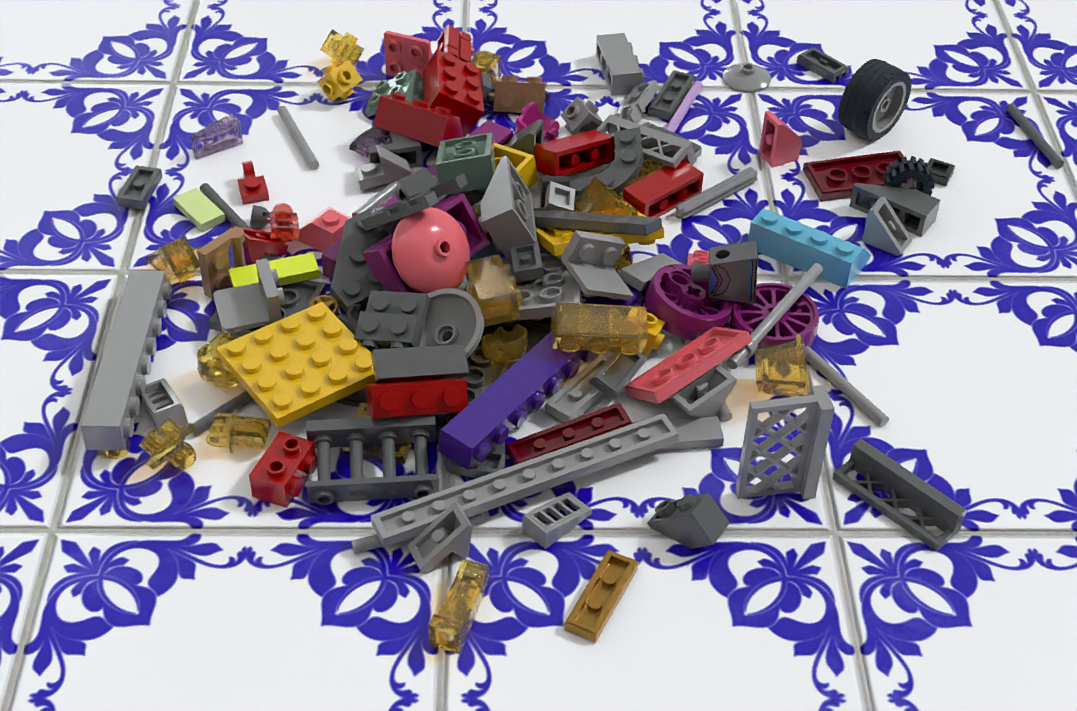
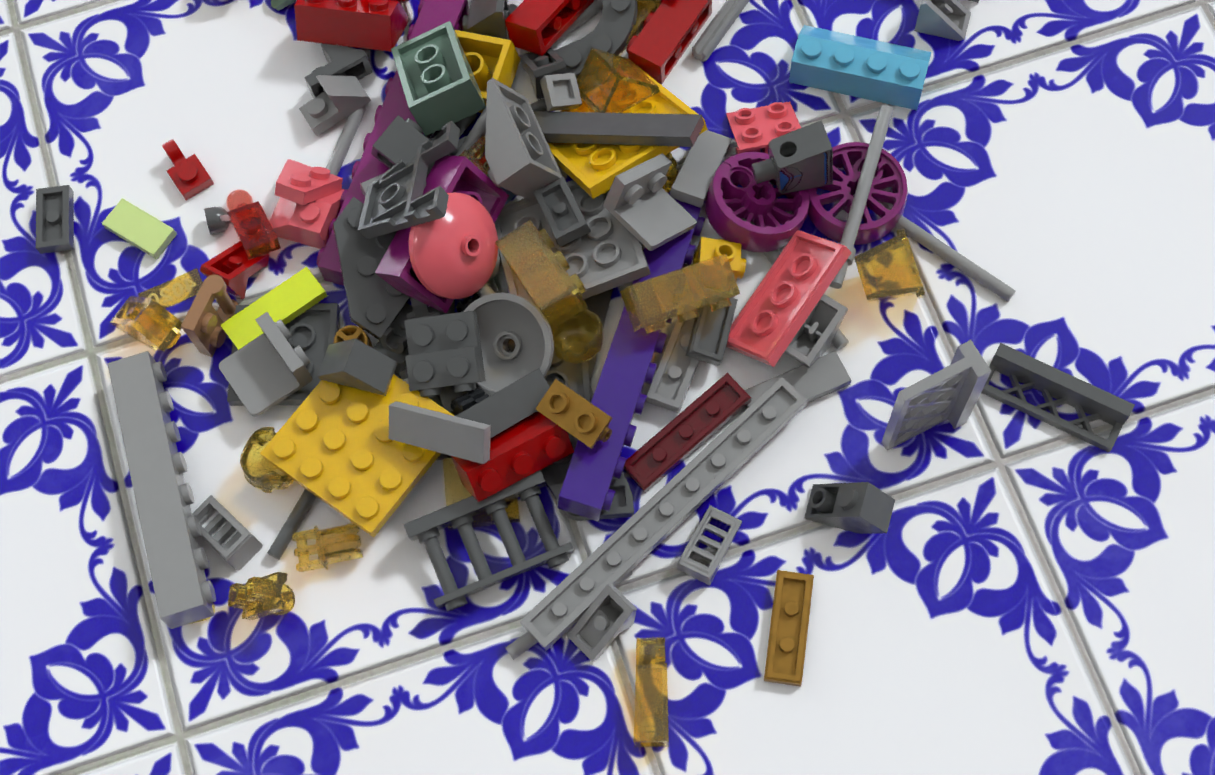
camera: 10 degrees left, 25 degrees up
(227, 140) = (113, 109): clear purple slope -> none
(229, 213) = (174, 221): dark grey bar -> none
(283, 469) = (398, 581): red brick -> none
(298, 138) = (208, 74): light grey bar -> none
(321, 309) = (357, 366): none -> dark grey slope
(333, 202) = (306, 183): none -> coral wing
(363, 356) = (439, 432): none -> light grey tile
(371, 137) = (300, 60): clear purple slope -> none
(479, 375) = (575, 414): none -> pearl gold hinge

